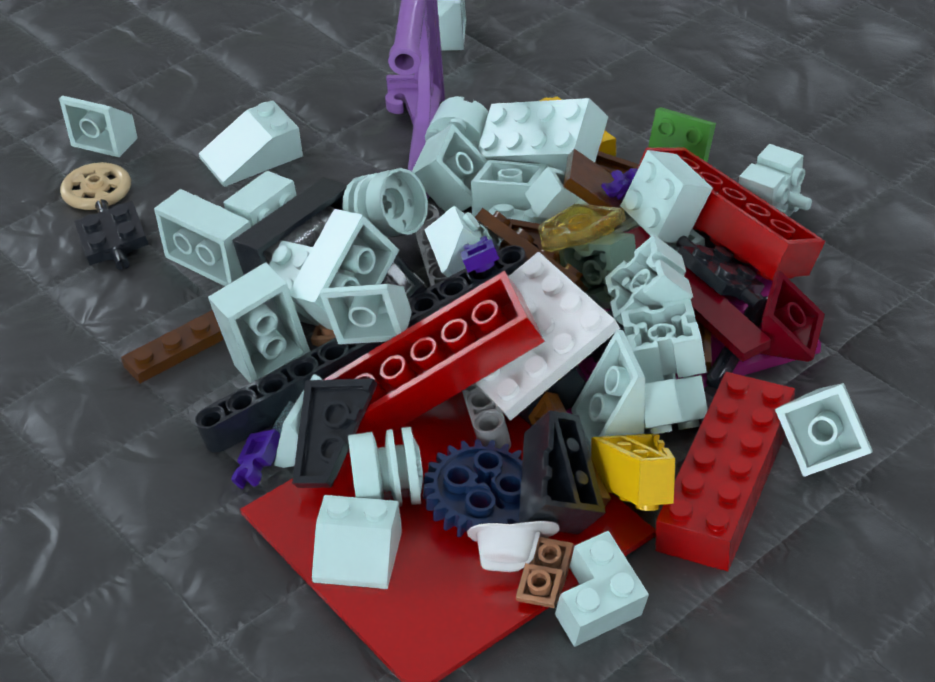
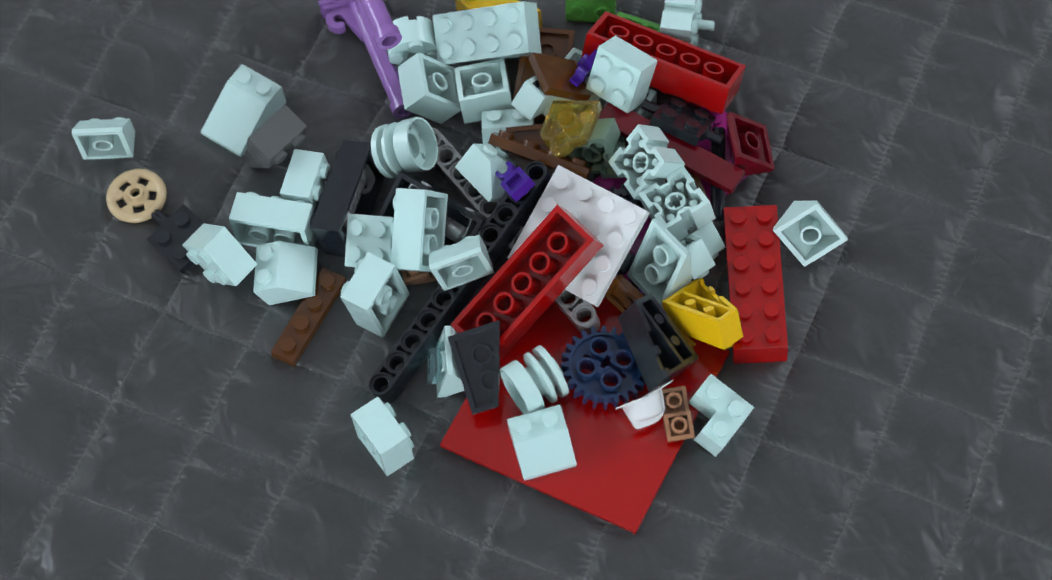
camera: 20 degrees left, 20 degrees up
(125, 242) = (219, 255): none -> light aqua brick
(176, 470) = (383, 435): none -> light aqua brick
(183, 284) = (285, 272): none -> light aqua slope
(251, 153) = (274, 139): none -> dark grey slope
(257, 453) = (424, 397): dark purple plate -> none

